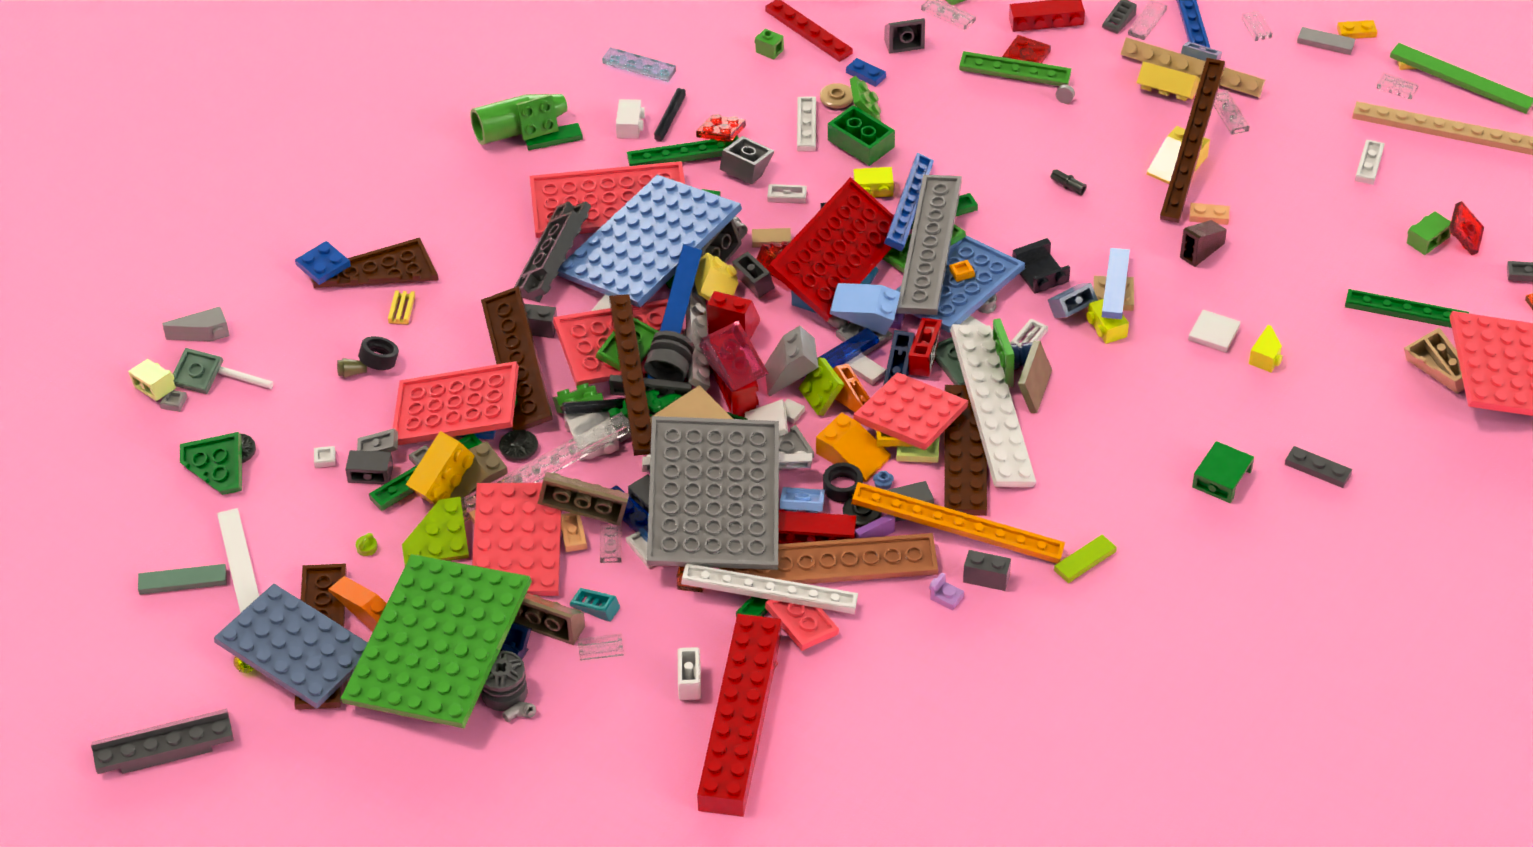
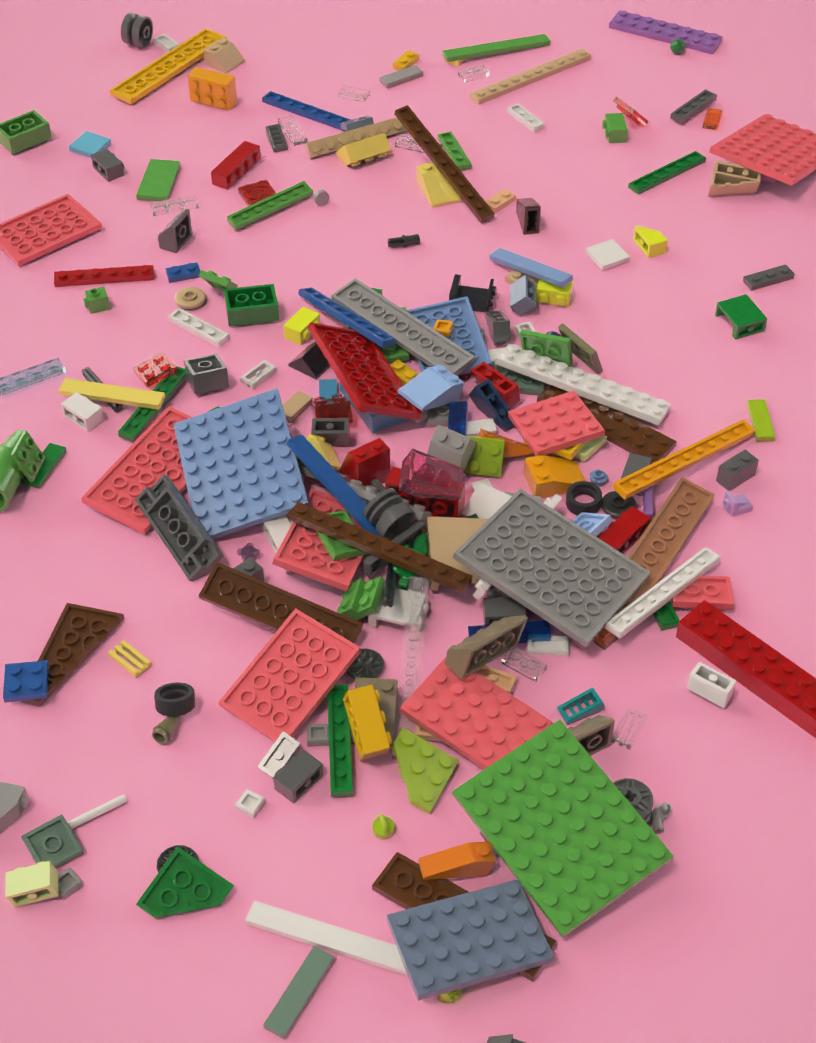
camera: 55 degrees left, 0 degrees up
(572, 307) = (248, 551): none -> clear purple plate
(664, 121) = (113, 393): none -> light yellow tile
(886, 276) = (403, 371): none -> yellow plate
(1014, 306) = (498, 326): none -> dark grey slope
(1250, 142) = (454, 150): none -> bright green tile

